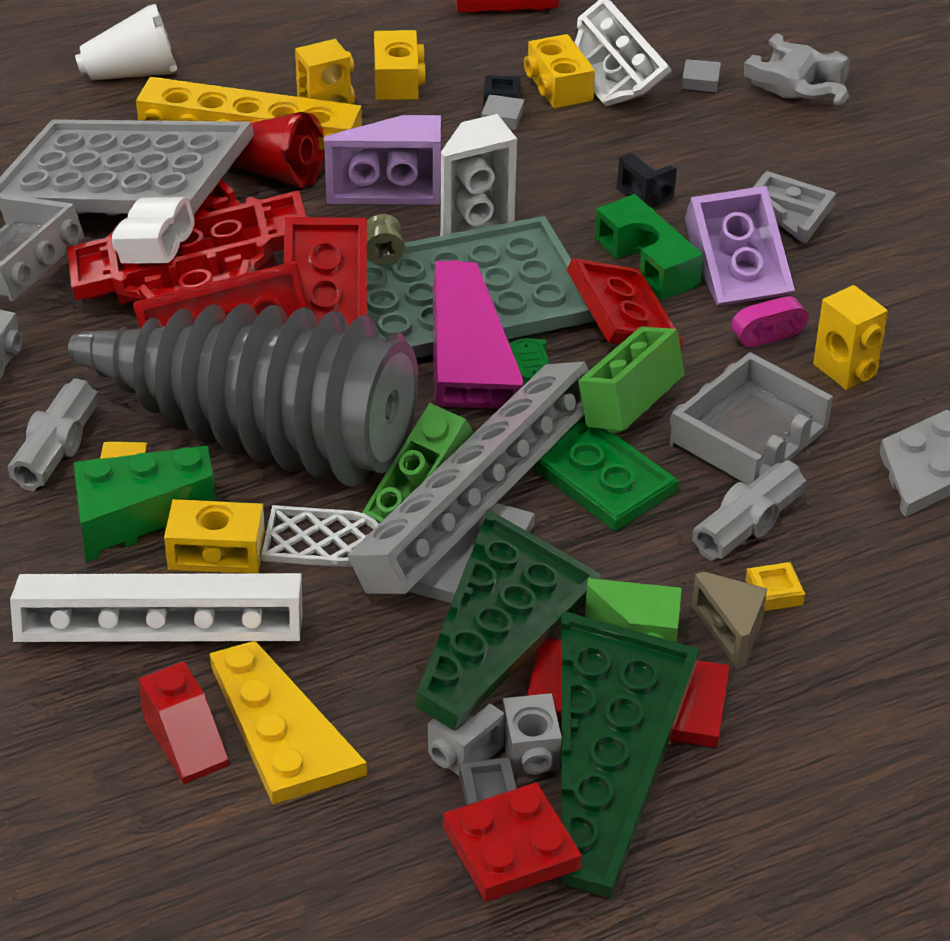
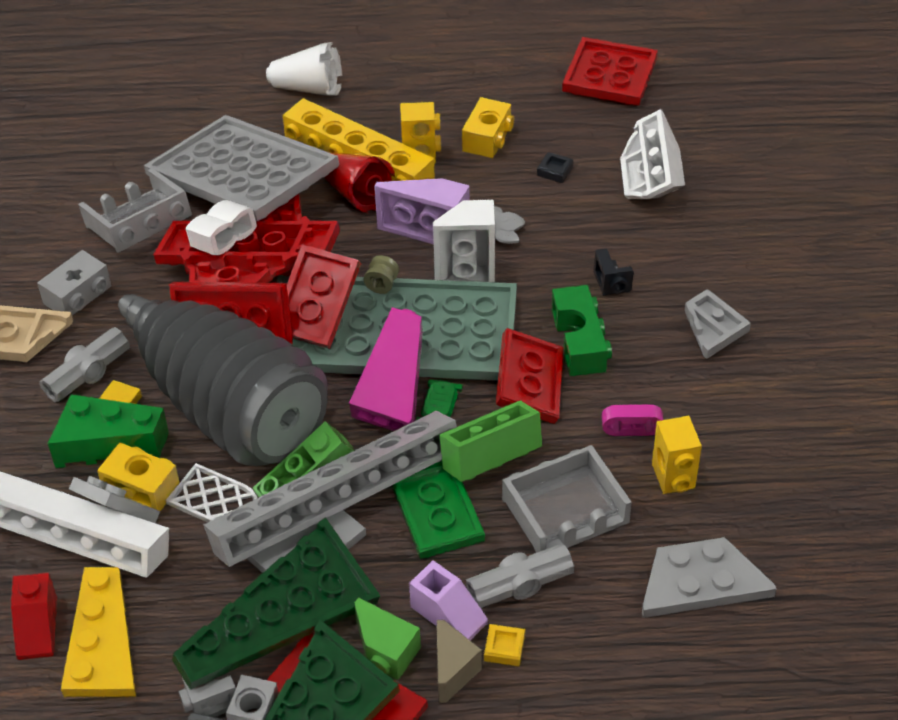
camera: 25 degrees right, 5 degrees up
(203, 559) = (112, 497): none -> light grey wing
(507, 108) = (544, 185): light grey tile -> none
(560, 71) = (603, 163): yellow brick -> none
(680, 549) = (443, 596): none -> lavender slope
(701, 75) = (713, 190): light grey tile -> none
(739, 245) = (645, 350): lavender slope -> none
(794, 69) = (787, 205): light grey animal -> none

